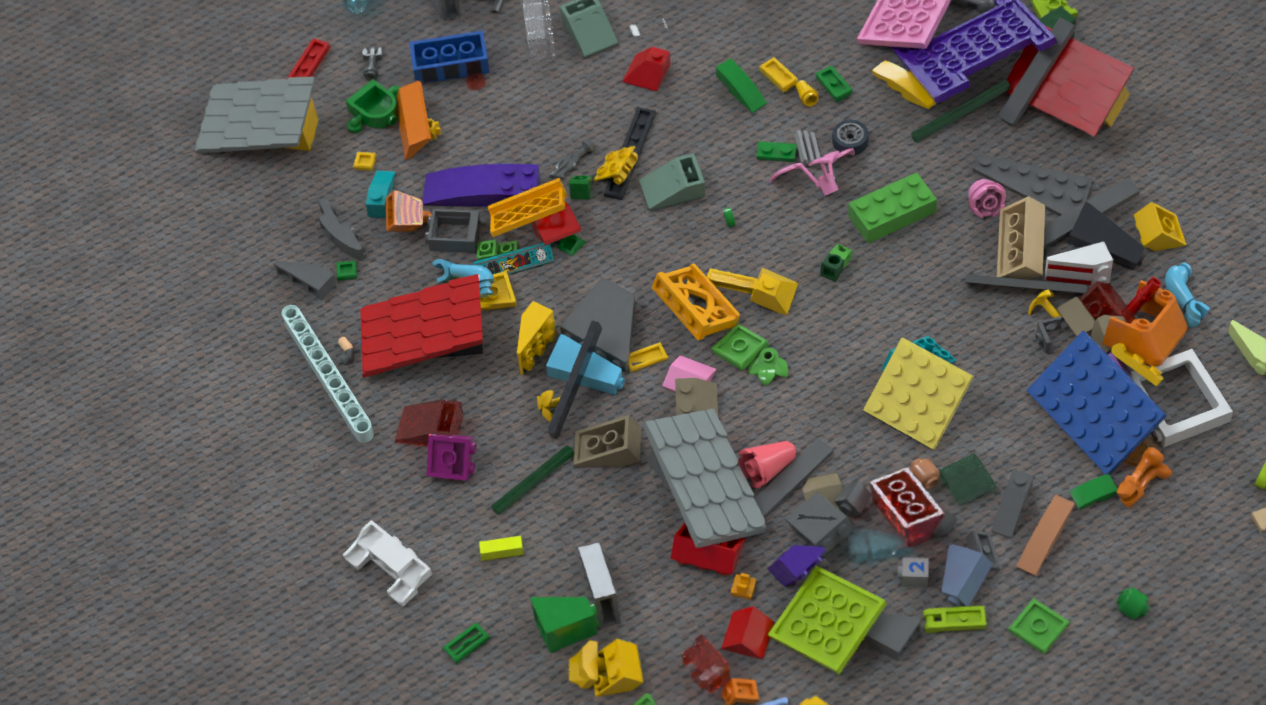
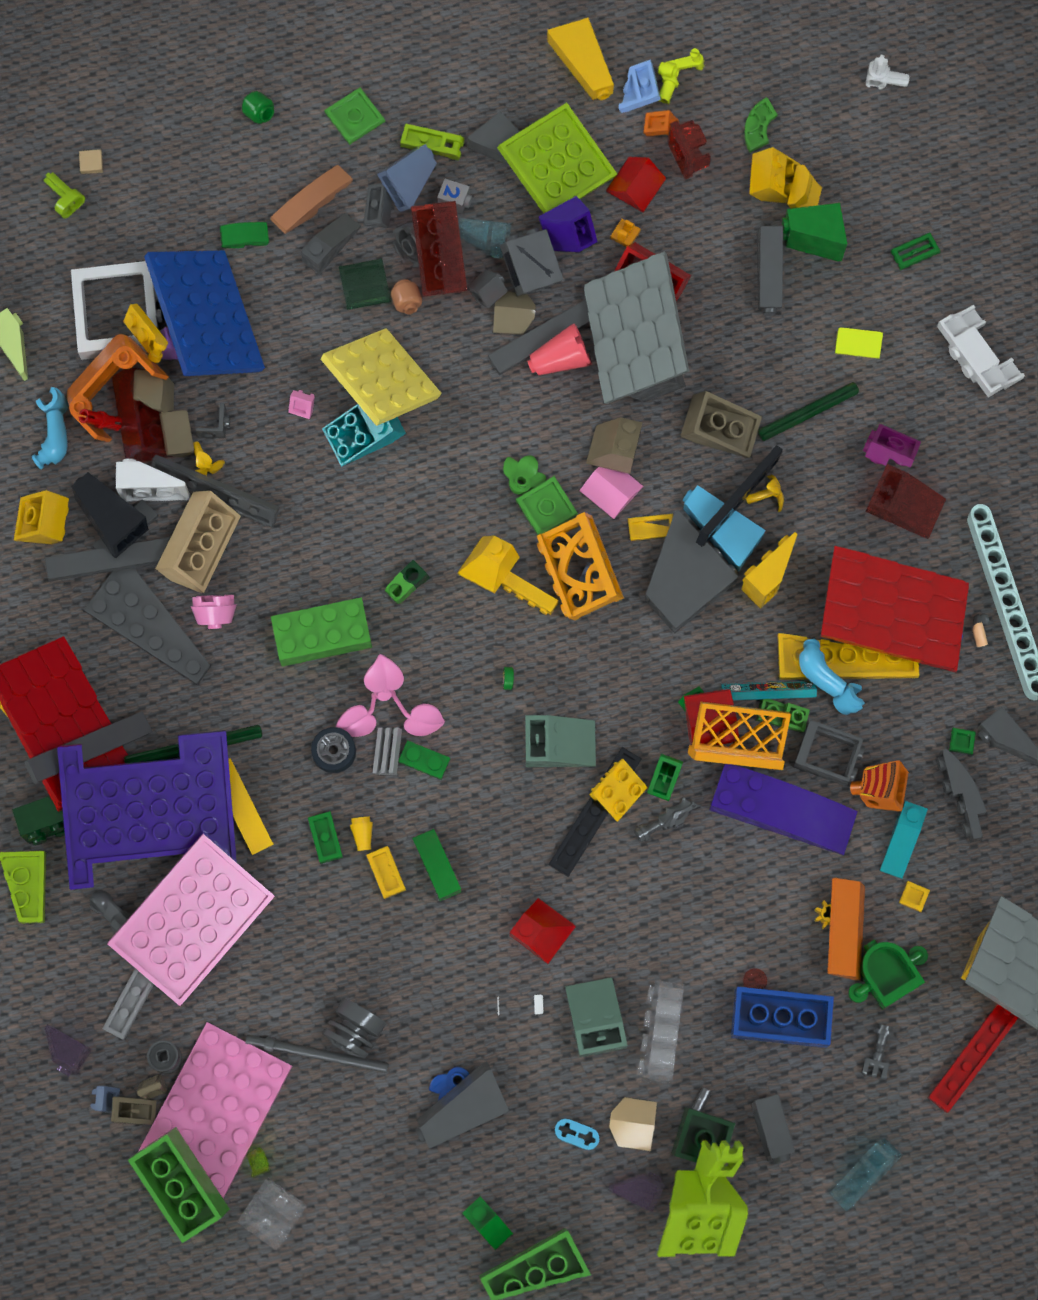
camera: 170 degrees left, 20 degrees up
(981, 367) = (301, 404): none -> bright pink tile
(1150, 466) = (177, 240): orange piece -> none

